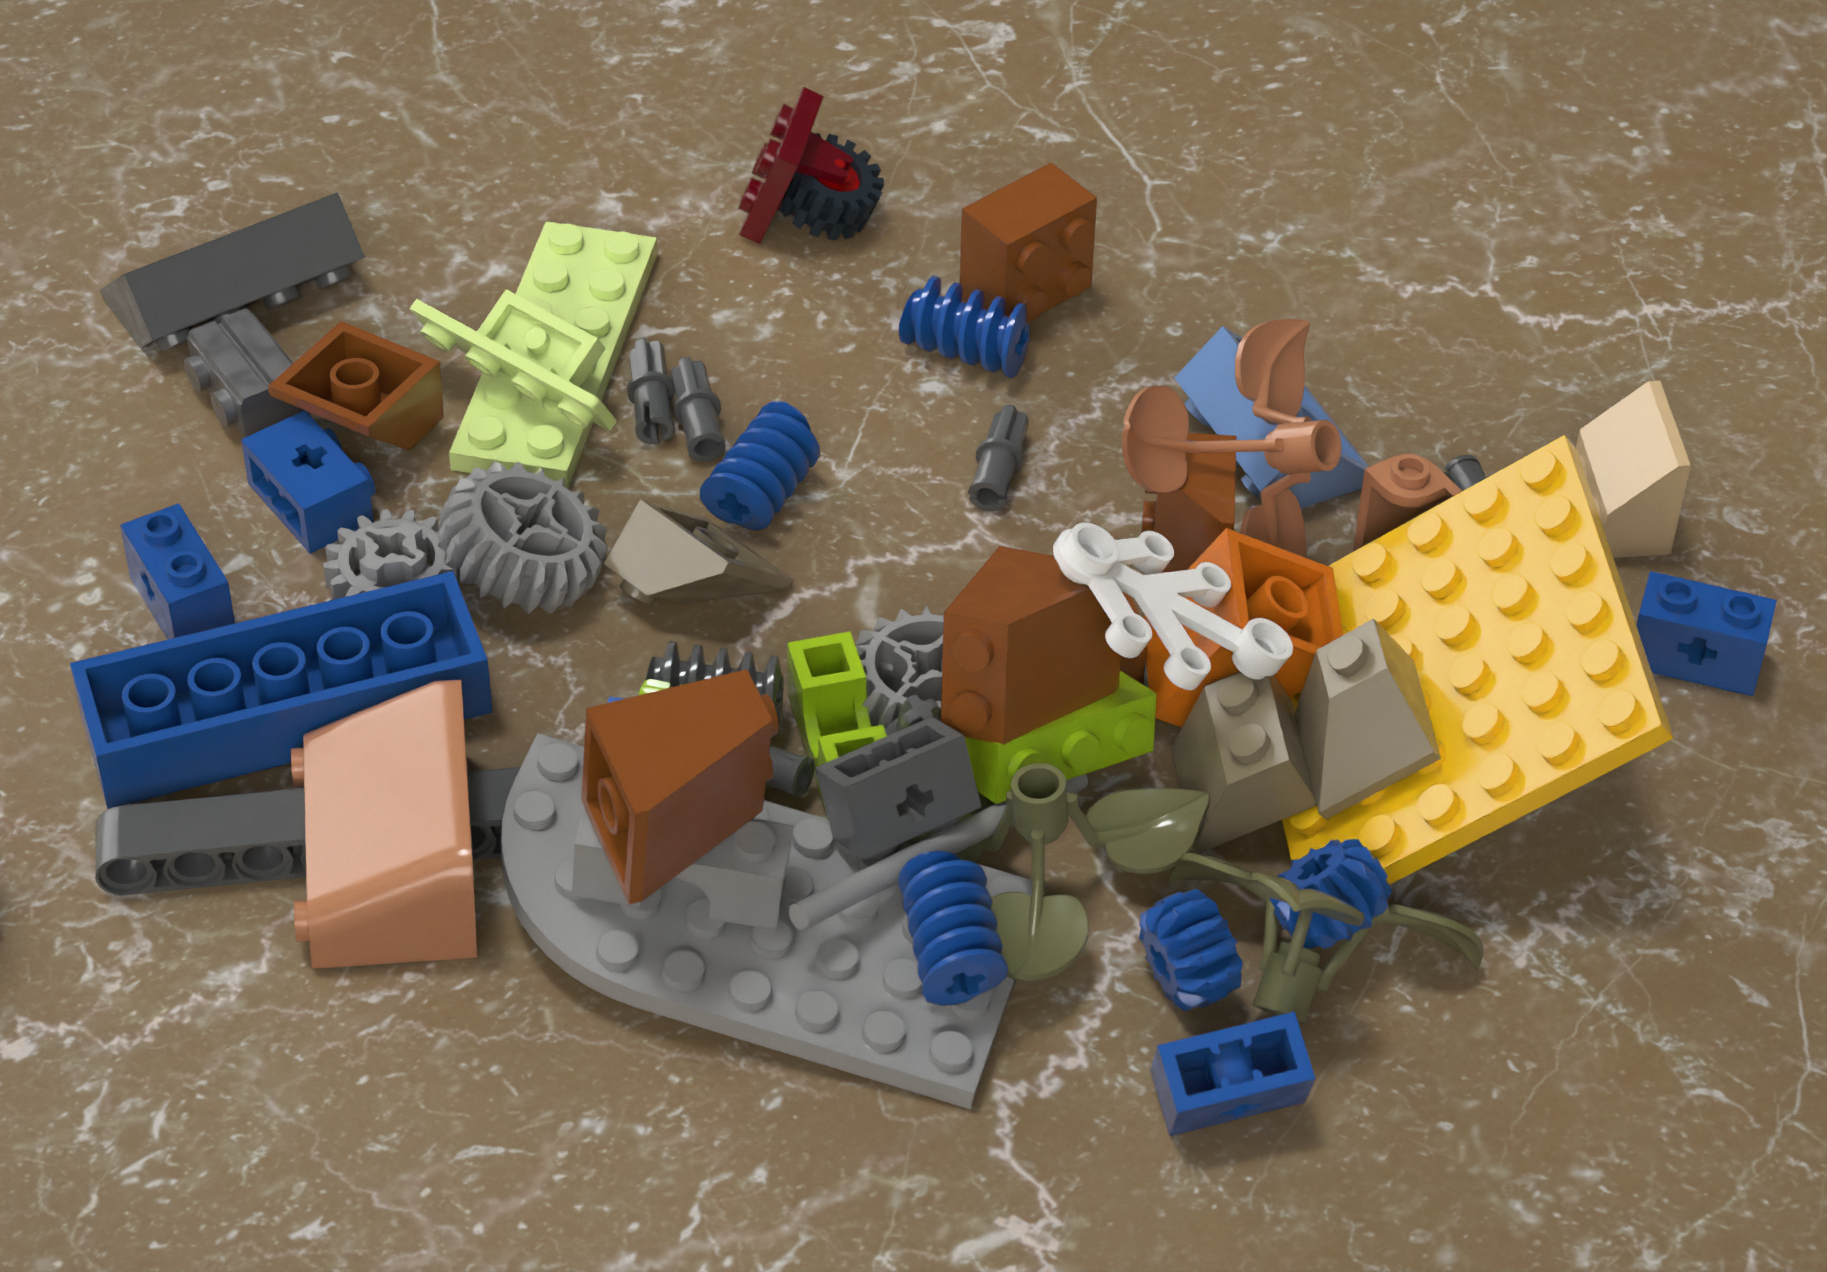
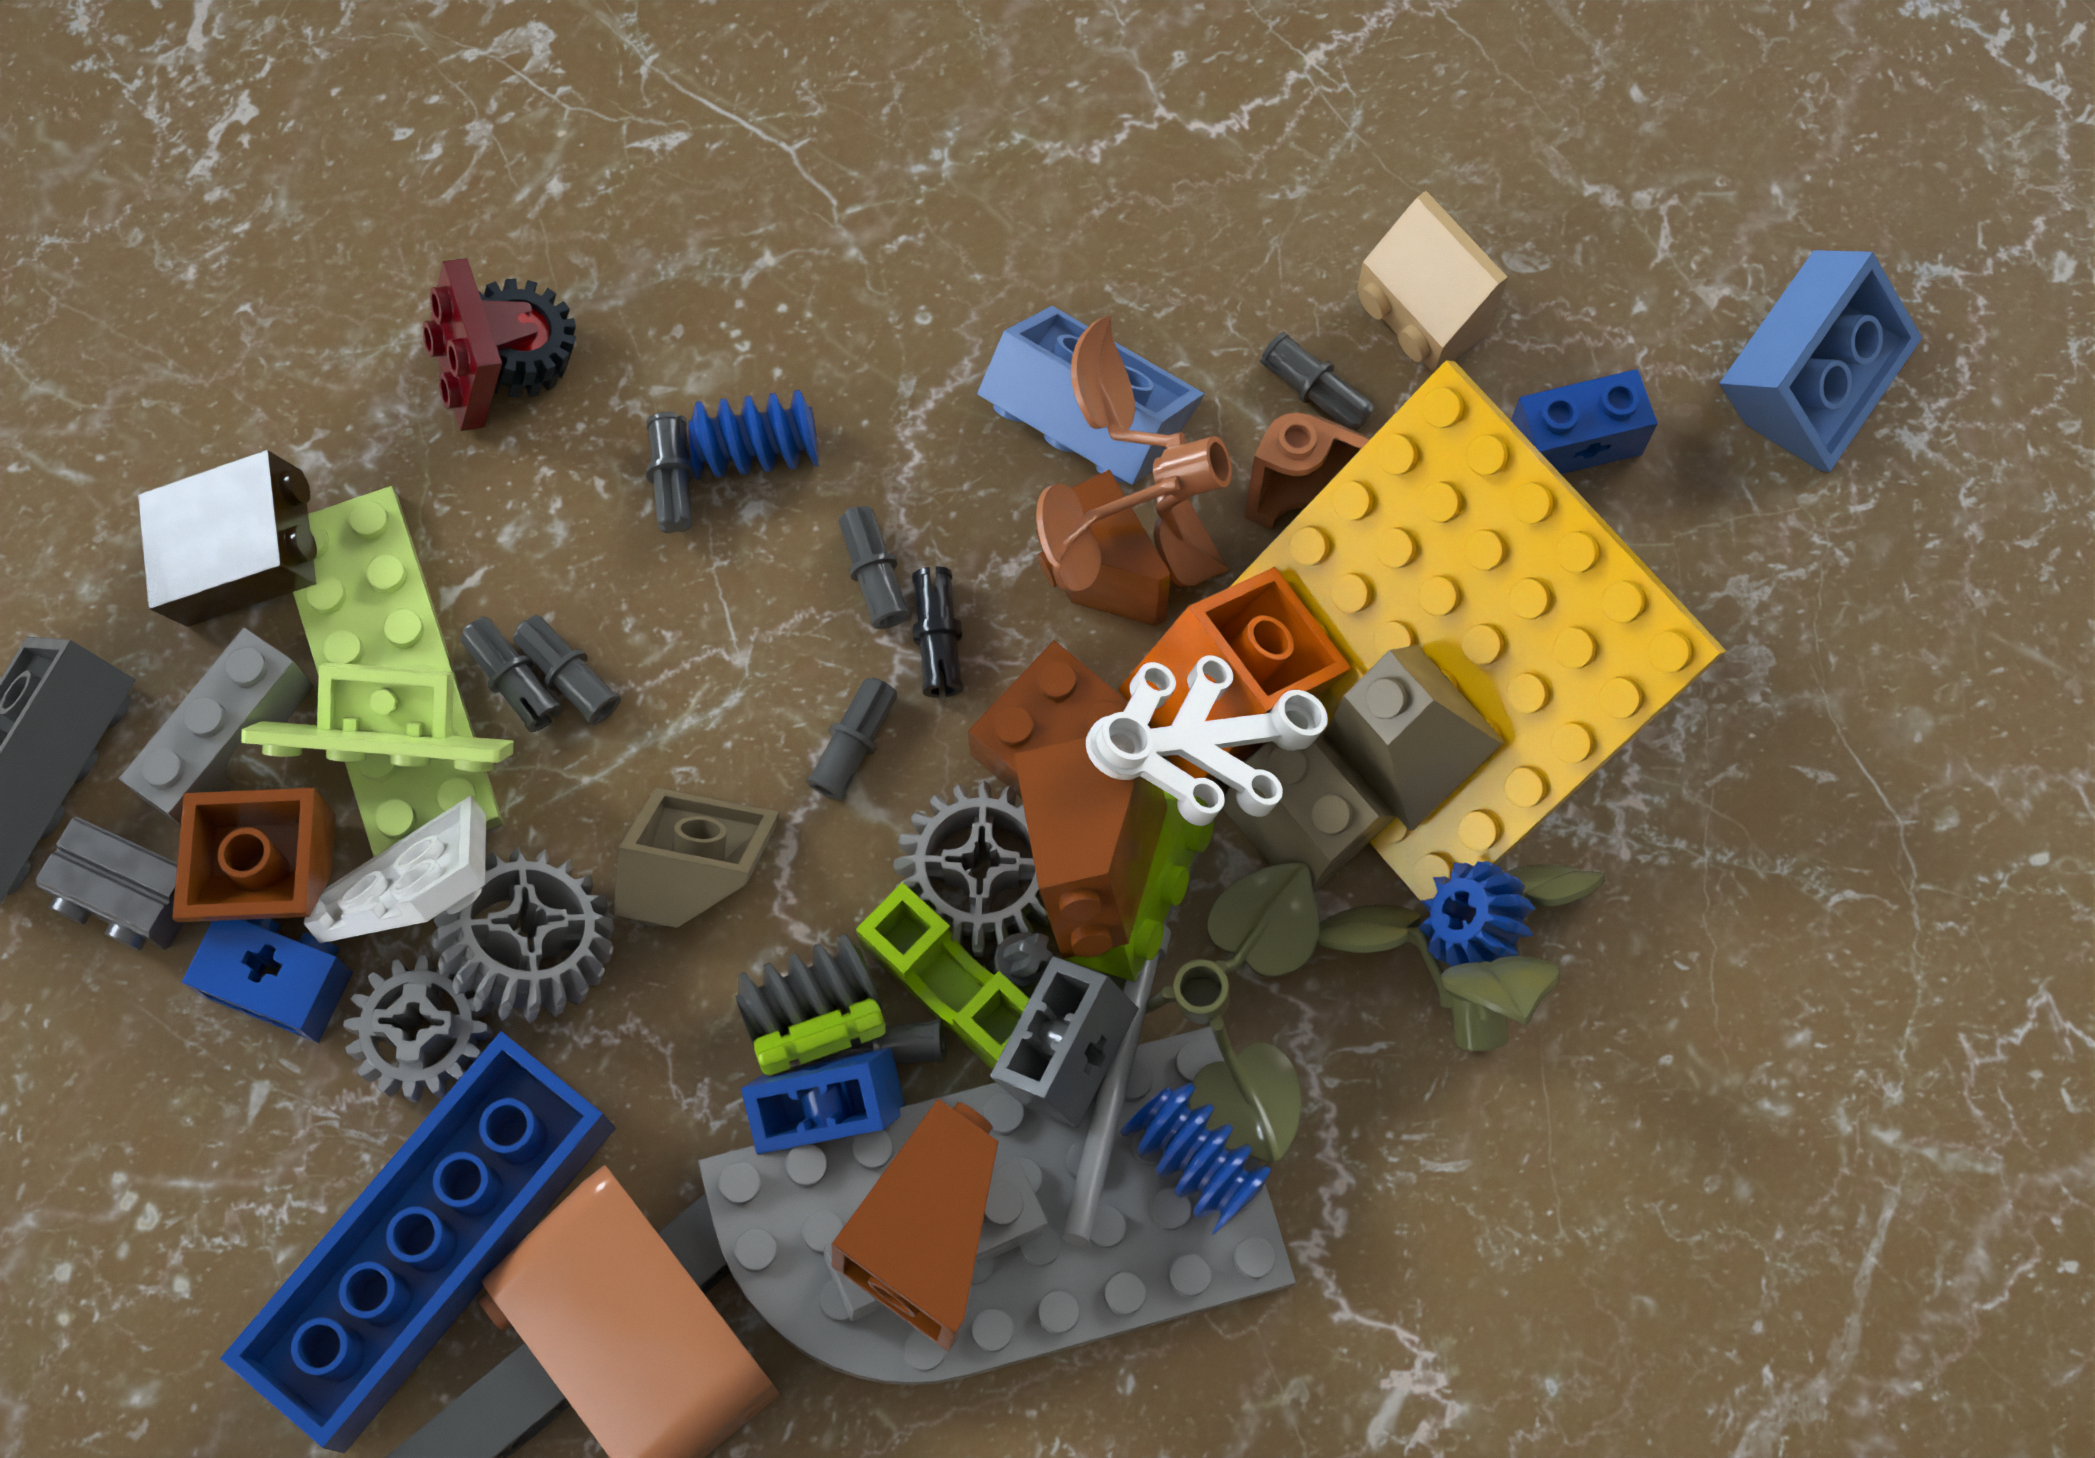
camera: 30 degrees left, 25 degrees up
(176, 573) = (230, 1169): blue brick -> none
(384, 301) = (196, 742): none -> light grey arch
(459, 447) = (410, 881): none -> white plate
(504, 203) = (227, 539): none -> brick
(761, 468) = (677, 714): blue piece -> none
(879, 325) = (670, 471): none -> dark grey axle
(890, 556) = (852, 739): none -> dark grey axle
(1021, 518) = (937, 632): none -> black pin
(1029, 242) = (757, 318): dark orange brick -> none
(1190, 949) = (1387, 1034): blue gear -> none
(1232, 1073) = (1500, 1143): blue brick -> none

